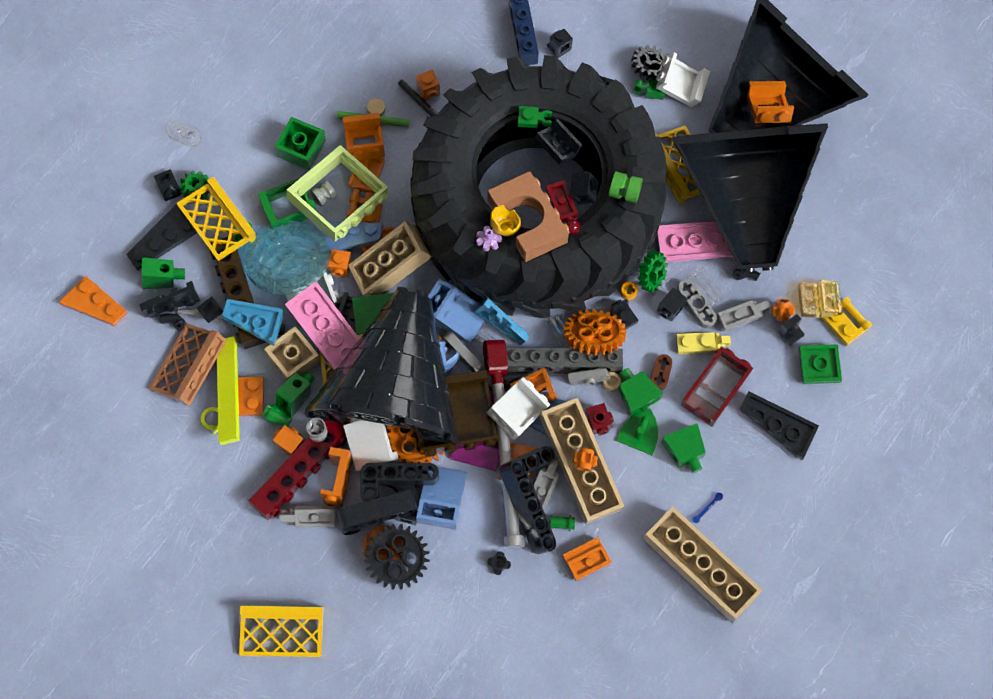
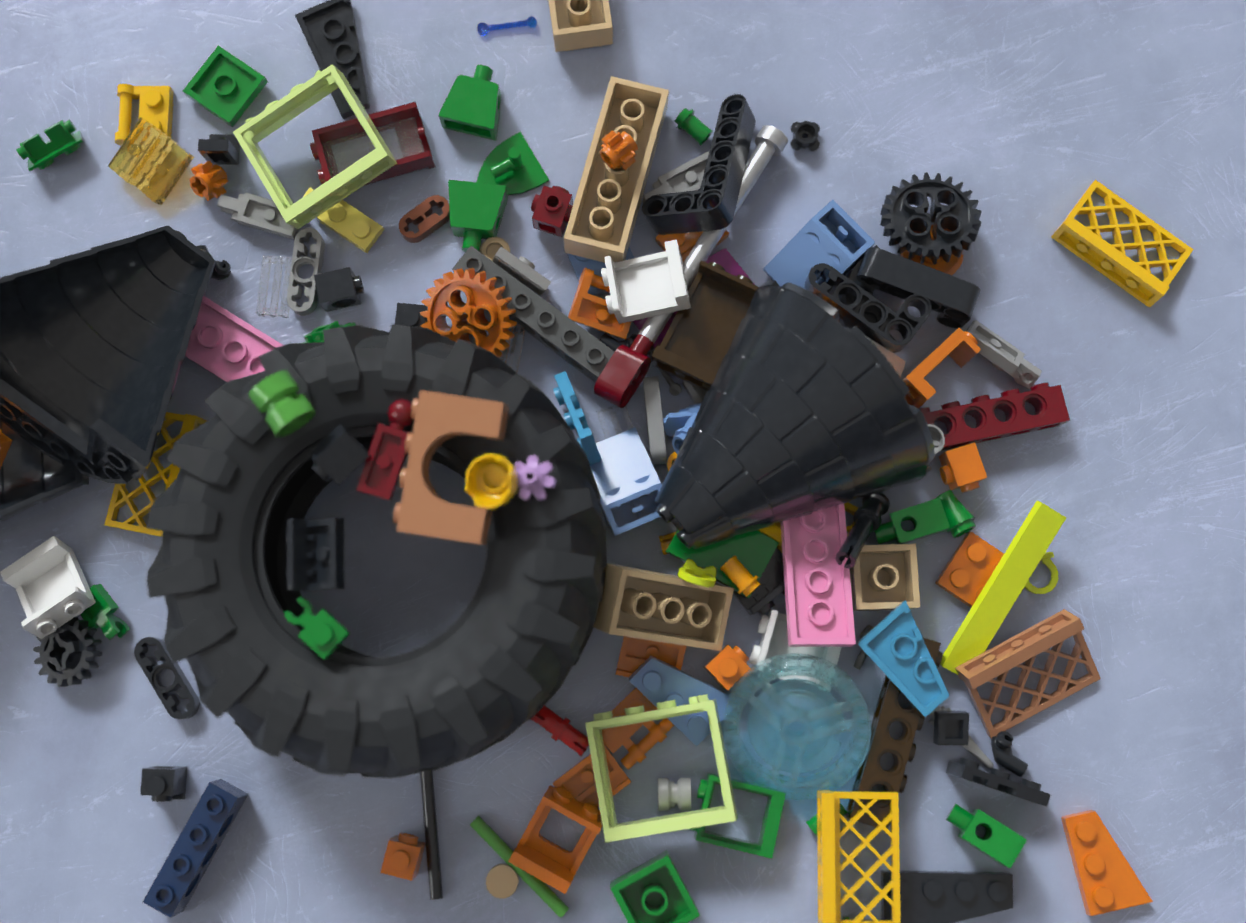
camera: 140 degrees left, 10 degrees up
(320, 374) = (865, 521): none -> black pin
(363, 301) = (740, 576): none -> light orange pin
(390, 289) = (691, 569): none -> neon yellow piece
(397, 185) = (562, 730): none -> red pin
(587, 559) = (697, 65): orange plate -> none
(751, 328) = (340, 186): none -> yellowish green window
(872, 277) = (42, 153): none -> green hinge

